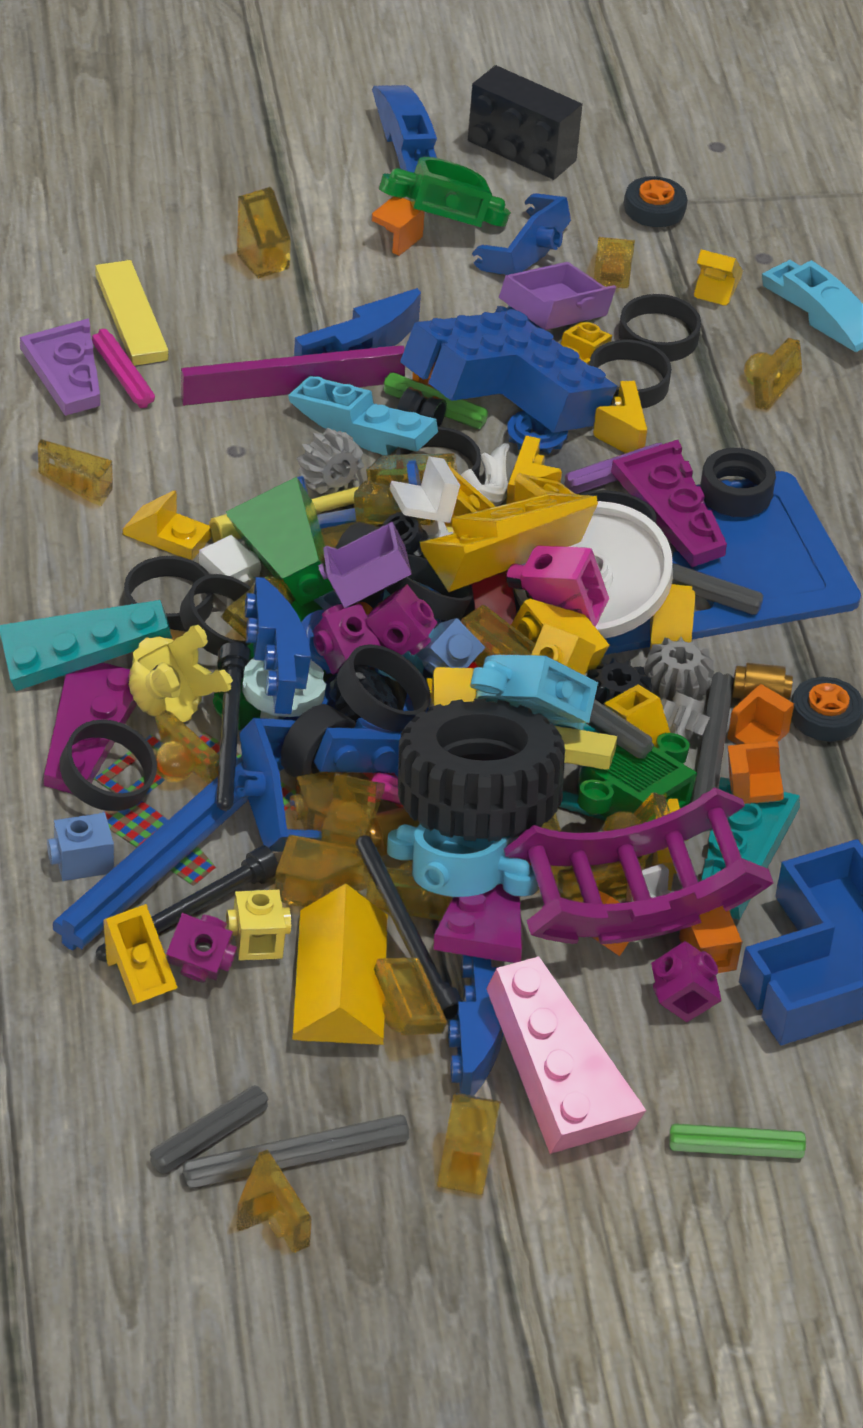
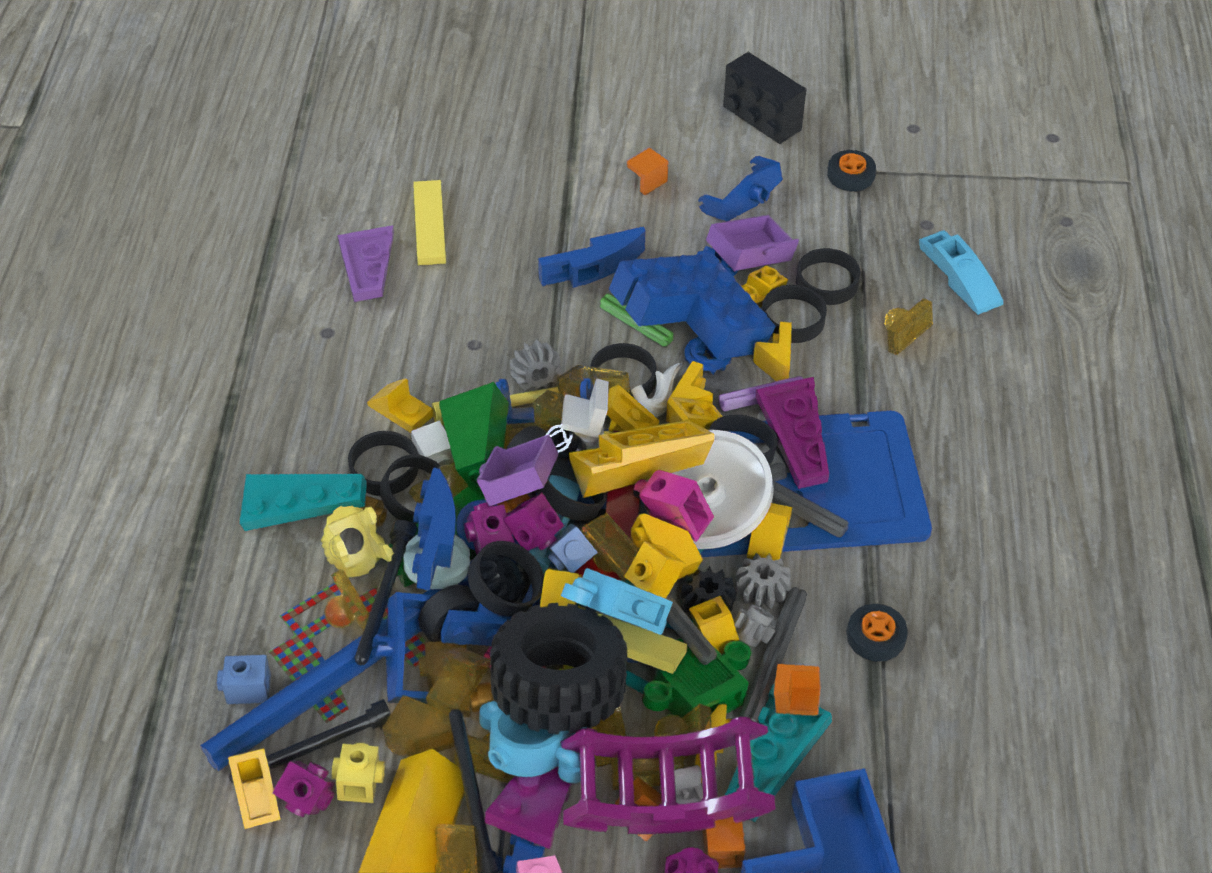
camera: 15 degrees right, 5 degrees up
(85, 473) = (345, 350): clear yellow slope -> none
(86, 696) = (285, 571): magenta wing -> none
(123, 368) = (408, 268): dark pink axle -> none
(126, 737) = (296, 580): black tyre -> none
(262, 233) = (540, 169): clear yellow slope -> none
(285, 374) = (527, 287): magenta tile -> none
(353, 411) = (571, 330): medium azure slope -> none
(405, 124) = (676, 98): blue slope -> none
(415, 401) = (619, 327): black wheel -> none
(447, 191) = (689, 149): green piece -> none
(613, 262) = (804, 219): clear yellow slope -> none
(717, 277) = (883, 240): yellow slope -> none
(741, 463) = (853, 436): black tyre -> none
(753, 674) = (828, 603): pearl gold brick -> none
(760, 717) = (818, 637): orange panel -> none

